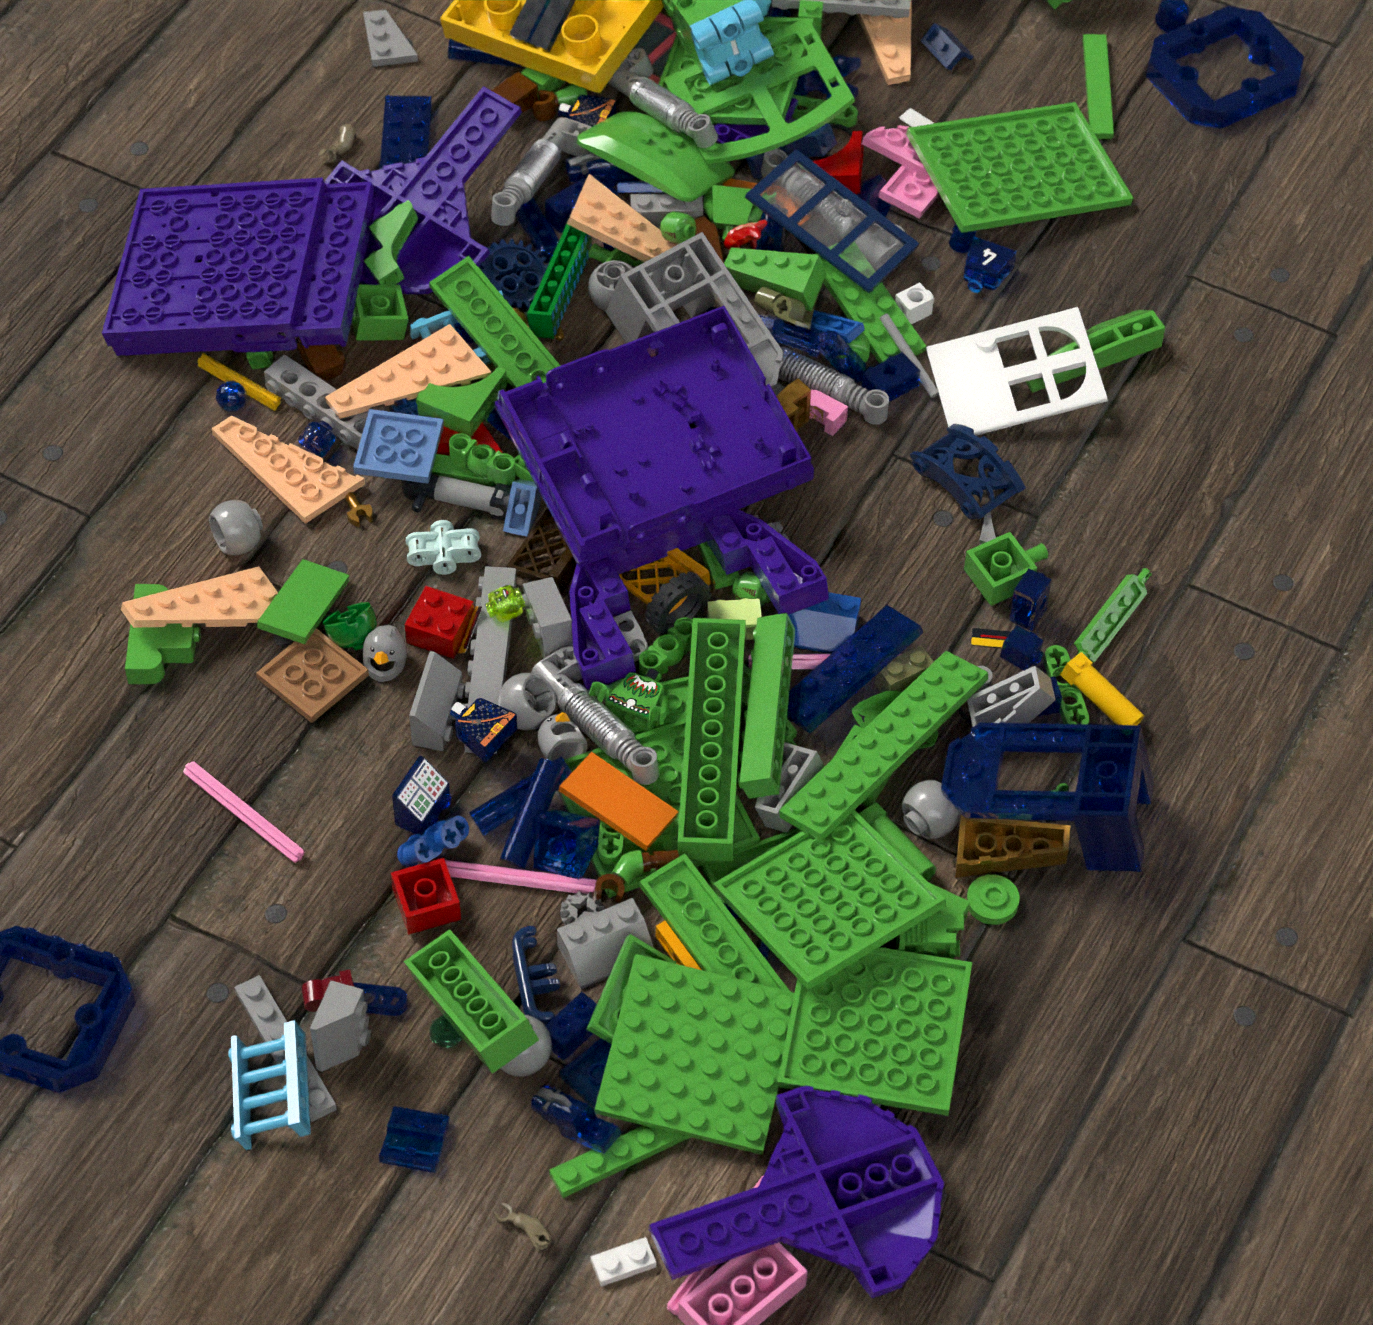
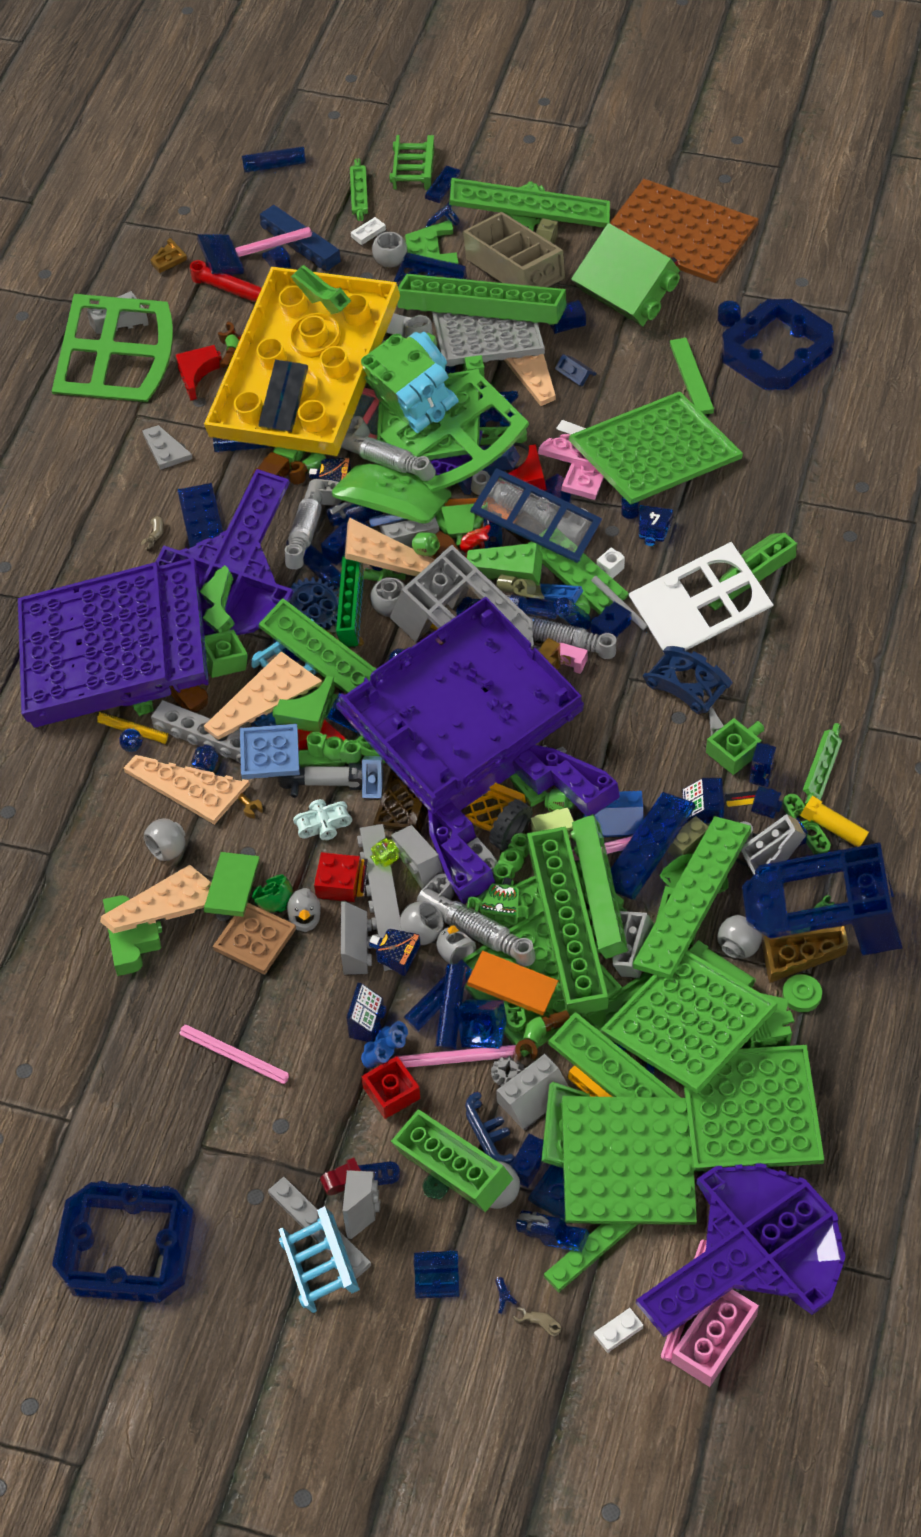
camera: 10 degrees left, 0 degrees up
(492, 1184) = (504, 1294): none -> clear blue bar
(943, 627) = (707, 797): none -> clear blue slope

